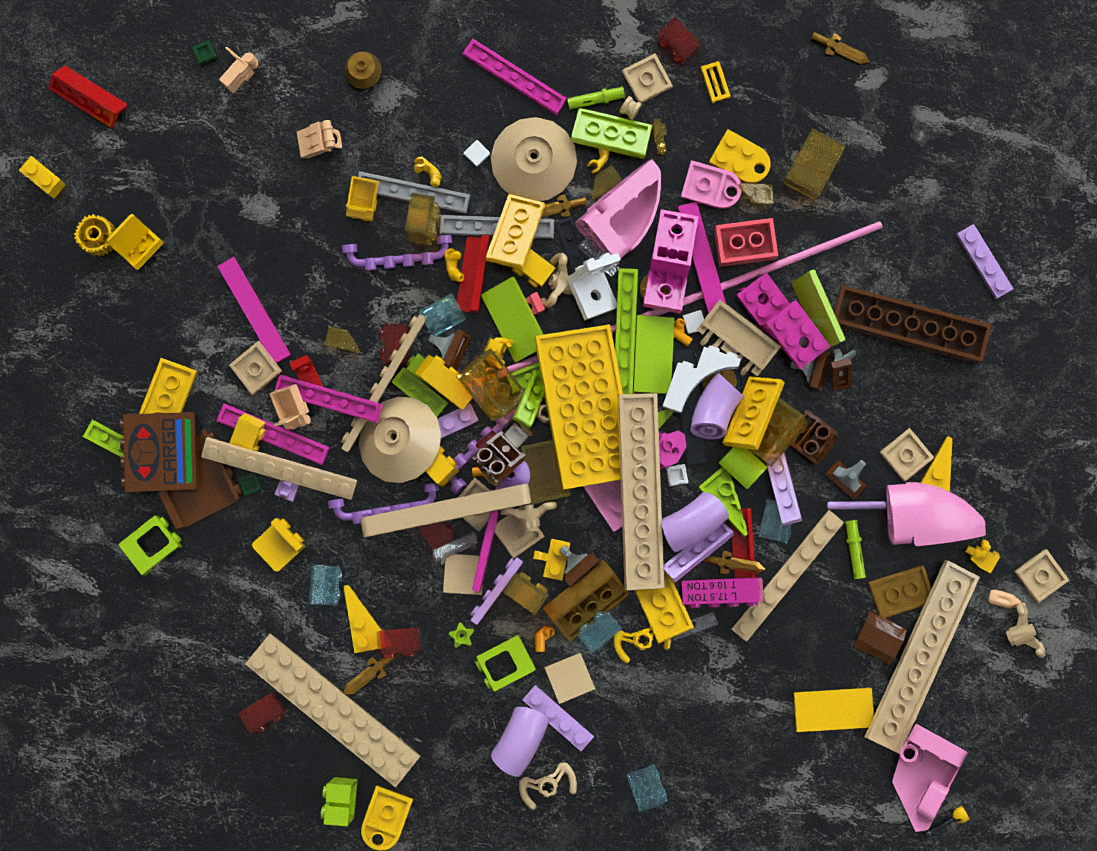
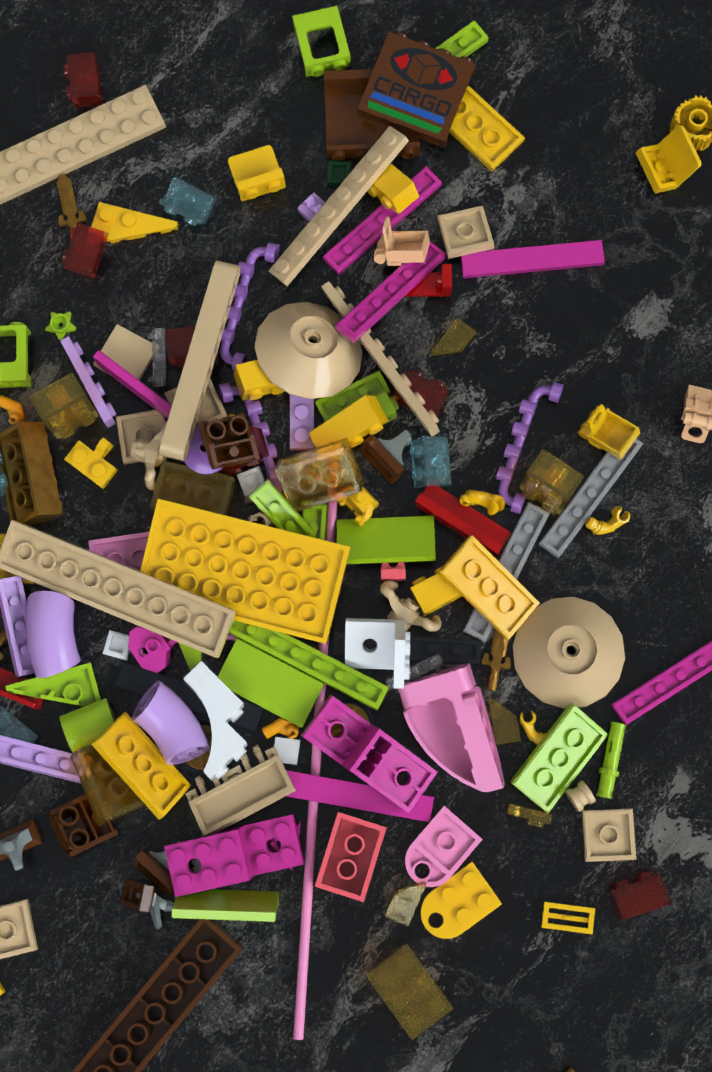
camera: 120 degrees right, 5 degrees down
(476, 153) = (605, 588): white tile -> none
(577, 564) = (71, 483): reddish brown piece -> none

